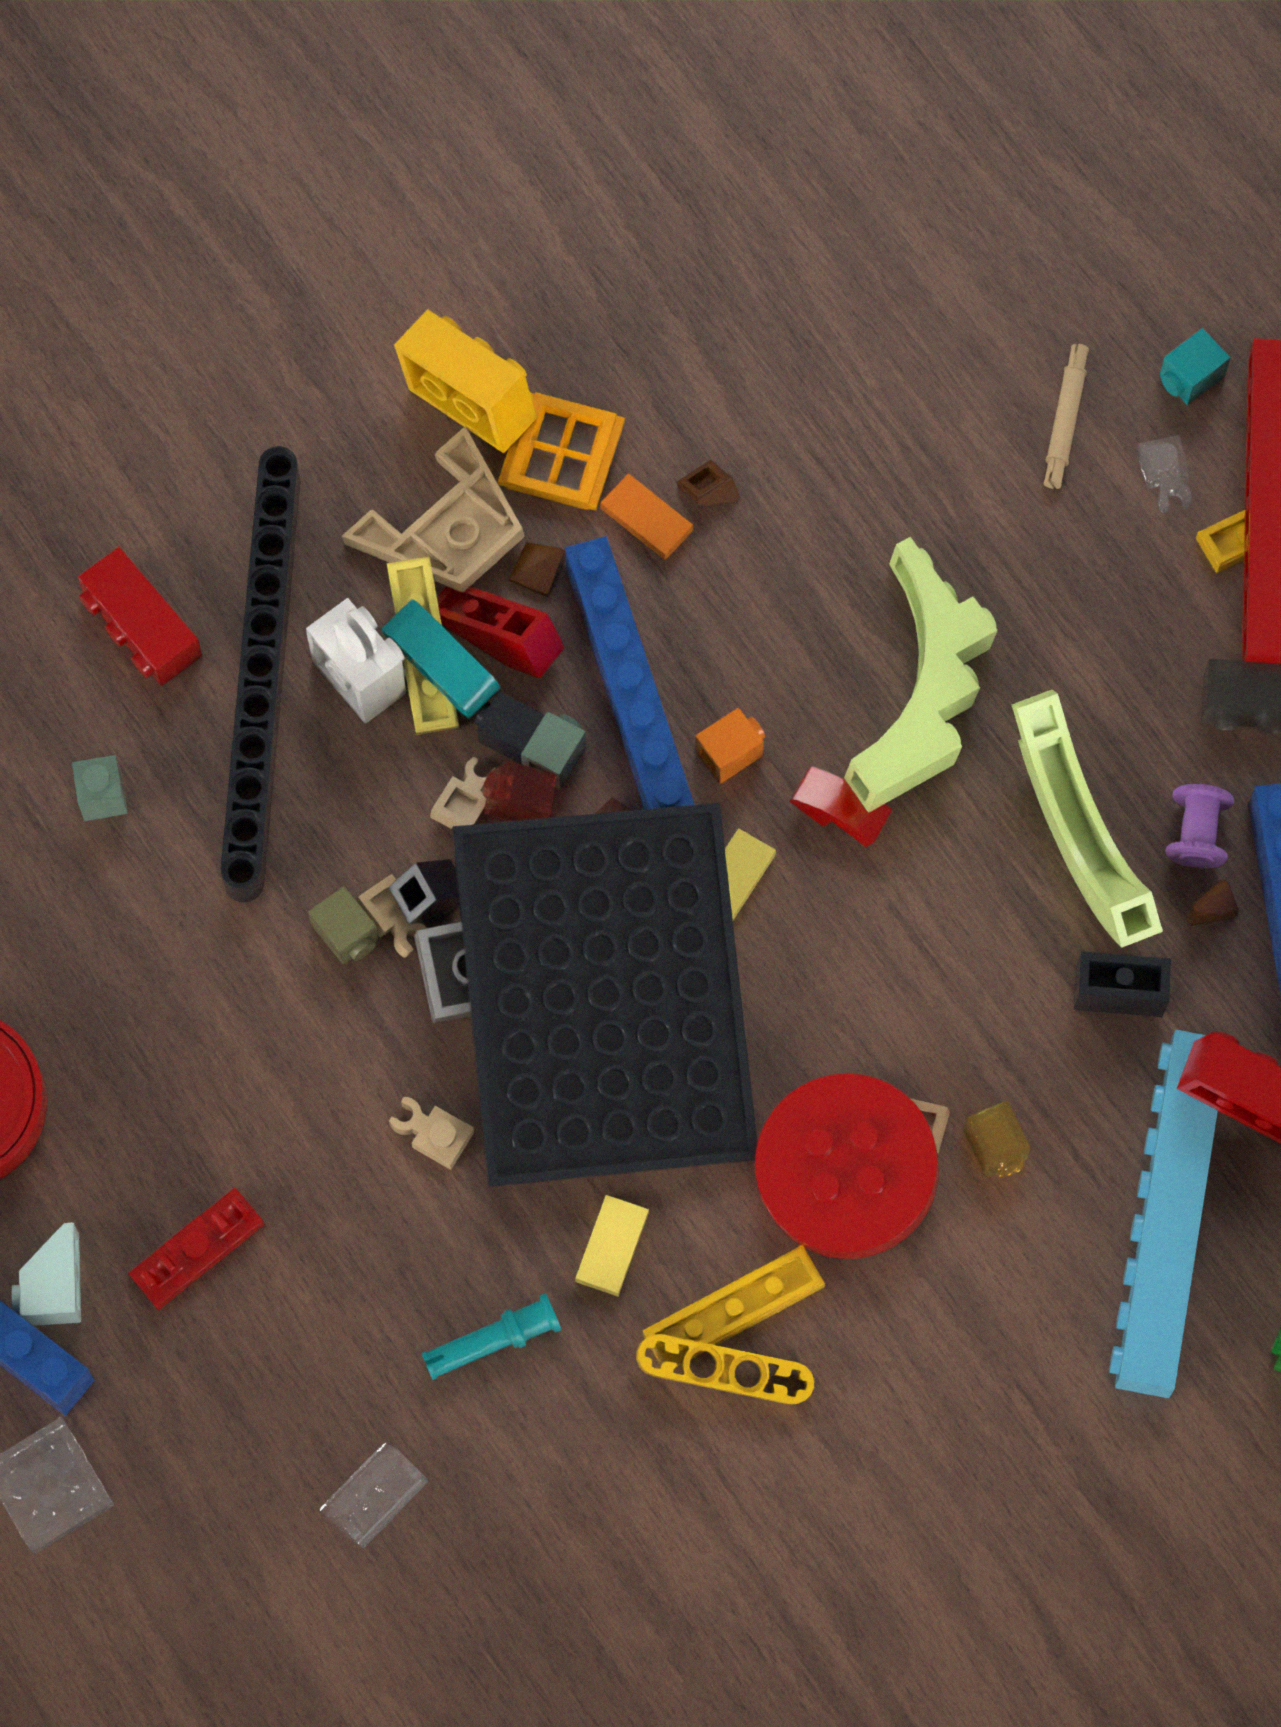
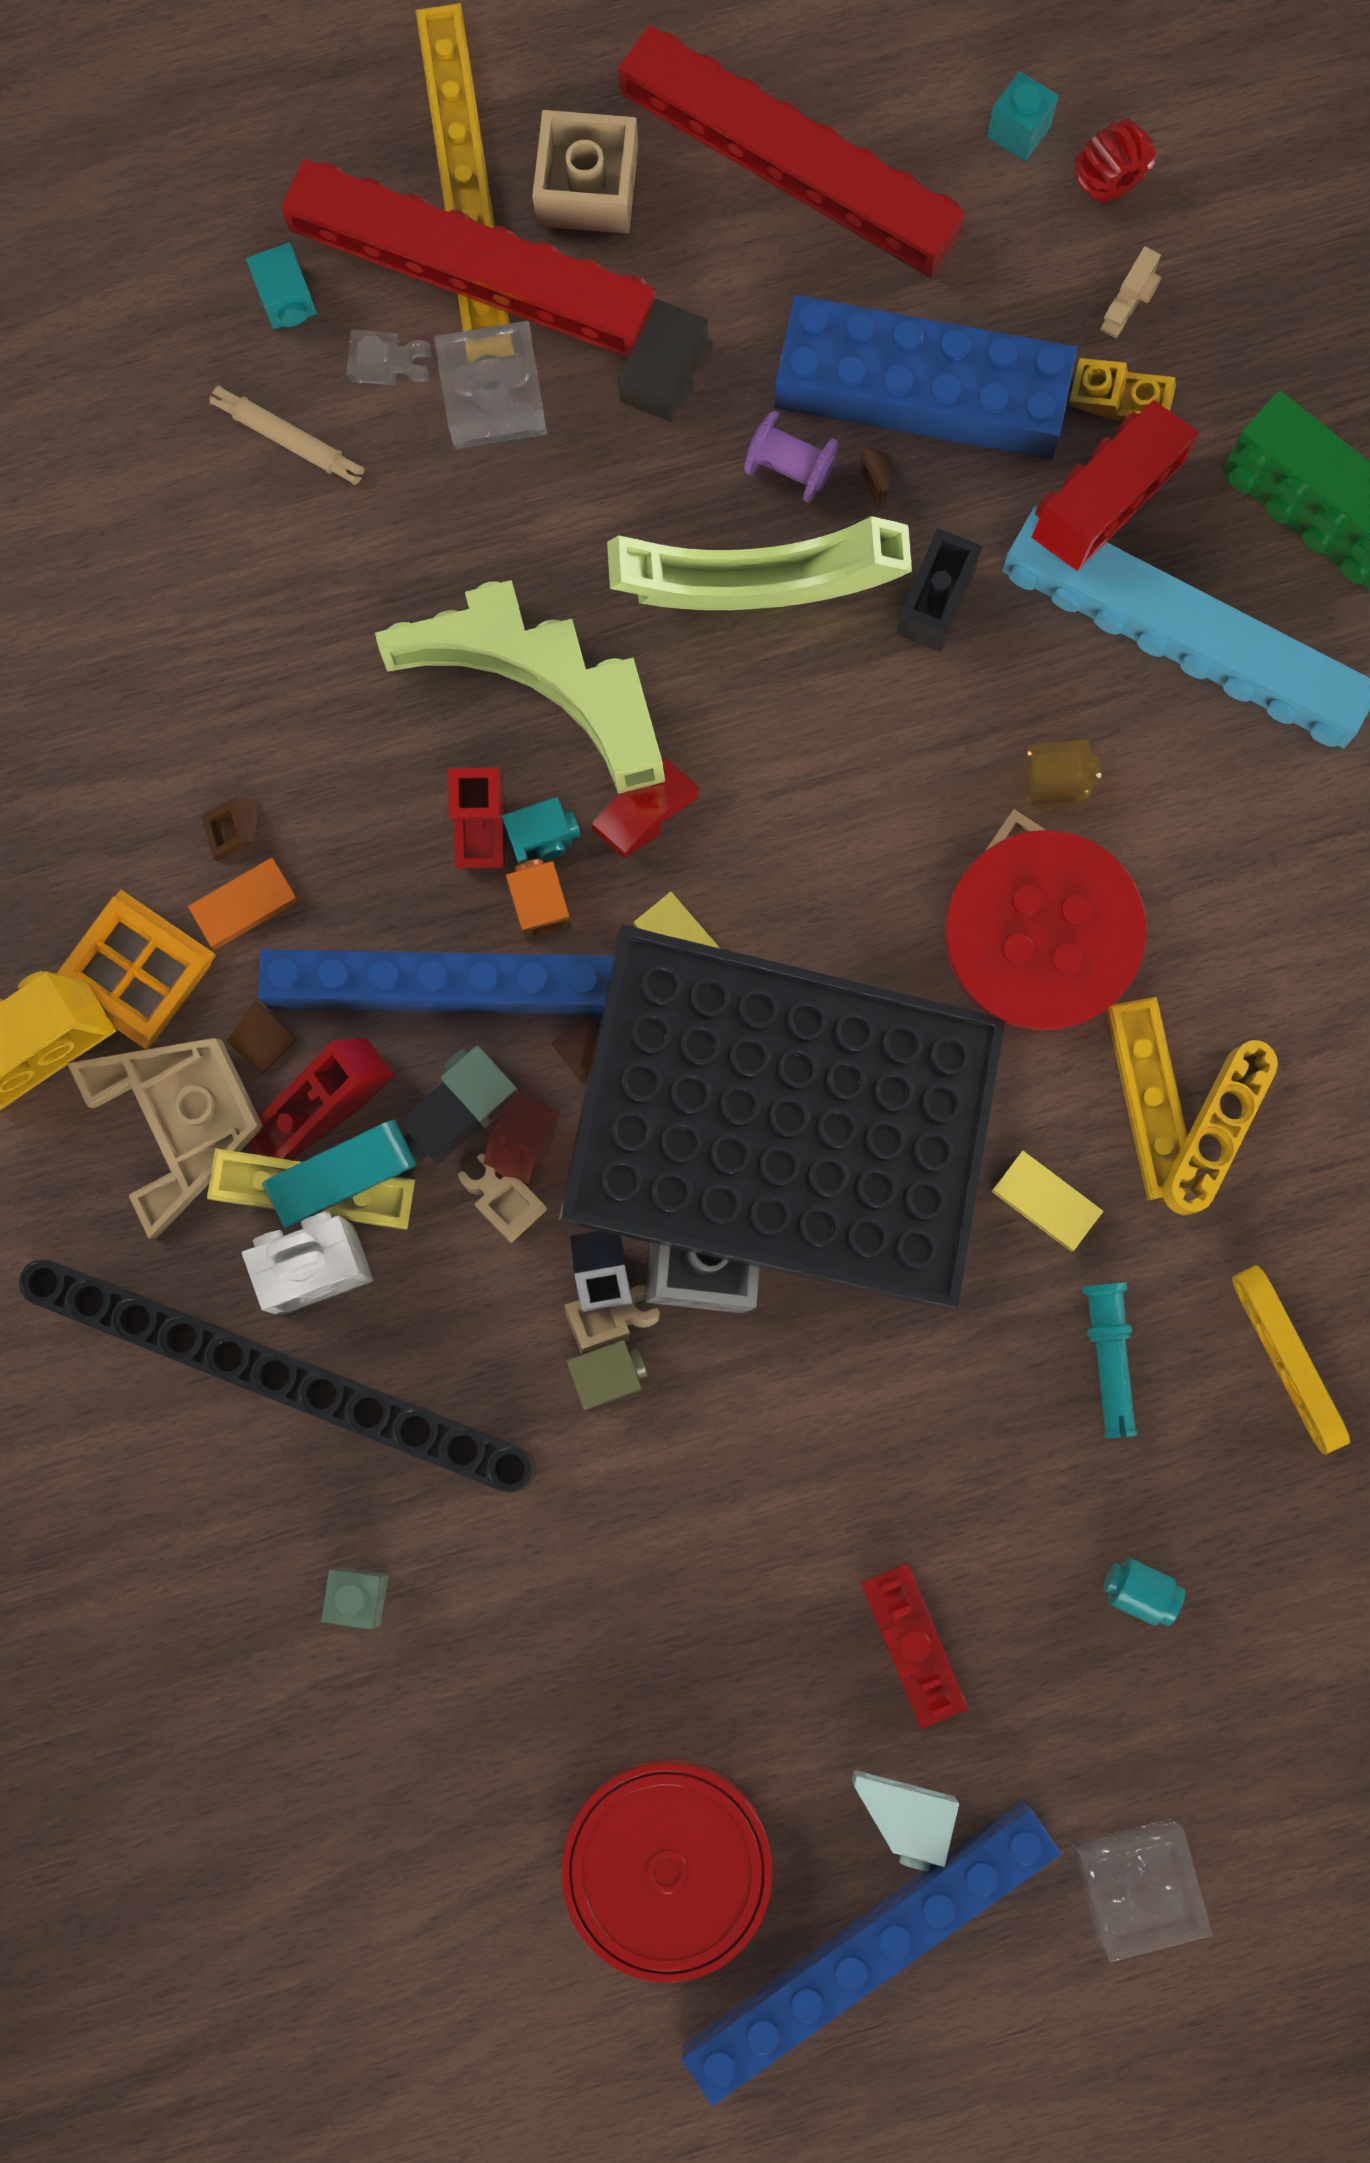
camera: 65 degrees left, 10 degrees up
(138, 617) = (164, 1494): red brick -> none
(298, 1421) = (1143, 1592): none -> teal brick
(374, 1495) = (1246, 1536): clear brick -> none
(437, 1135) = (868, 1345): tan plate -> none
(539, 1489) = (1290, 1359): none -> yellow beam
(789, 671) = (477, 812): none -> red brick
(789, 727) = (541, 830): none -> teal brick
(1167, 559) = (490, 385): none -> clear brick

